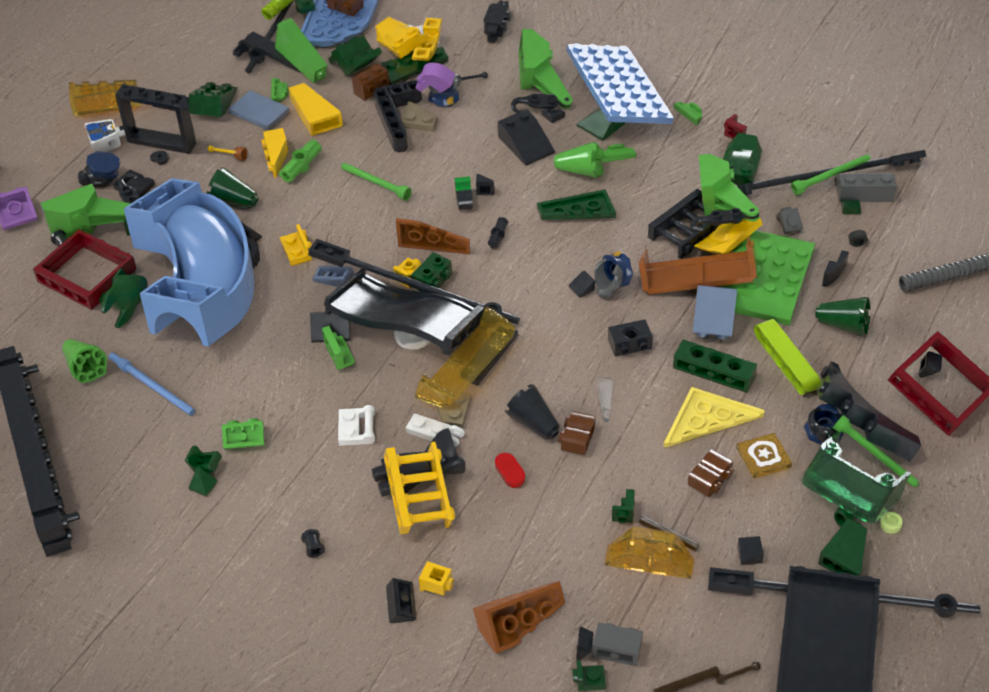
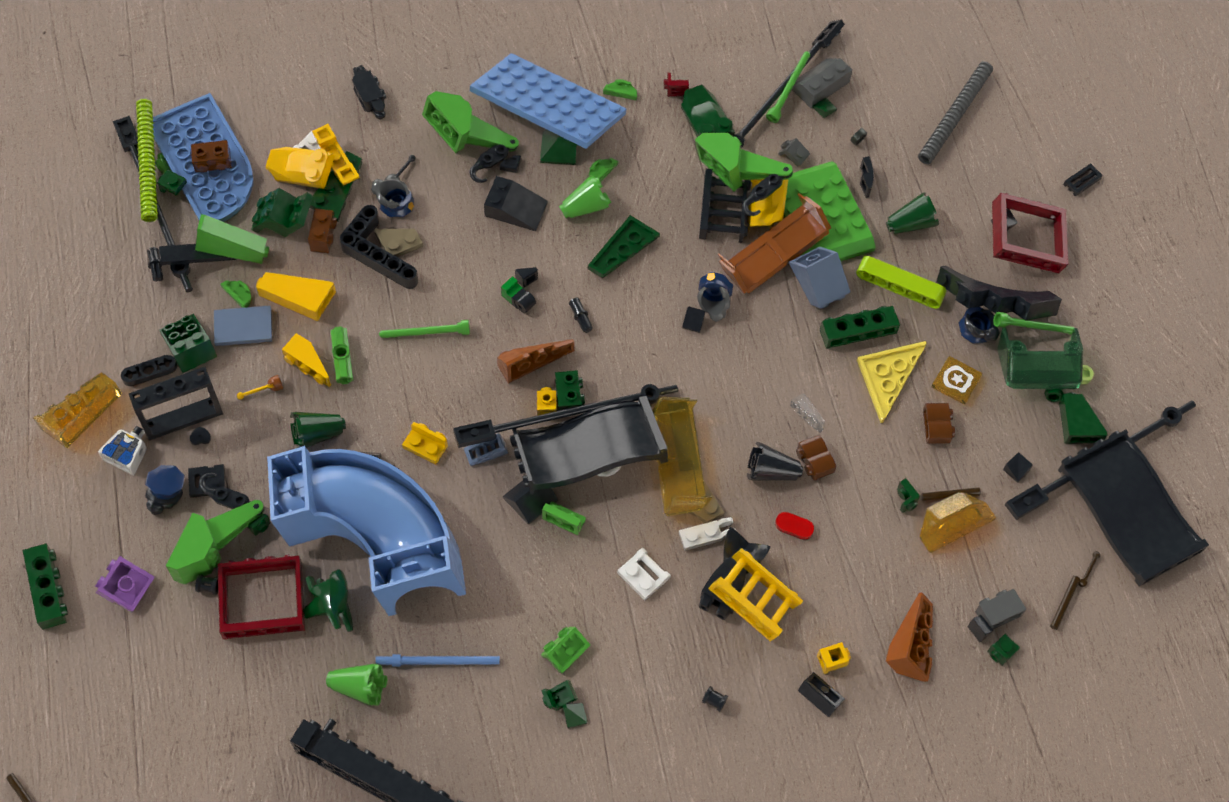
camera: 45 degrees left, 15 degrees up
(435, 75) = (389, 193): medium lavender brick -> none
(630, 337) = (781, 336): black brick -> none

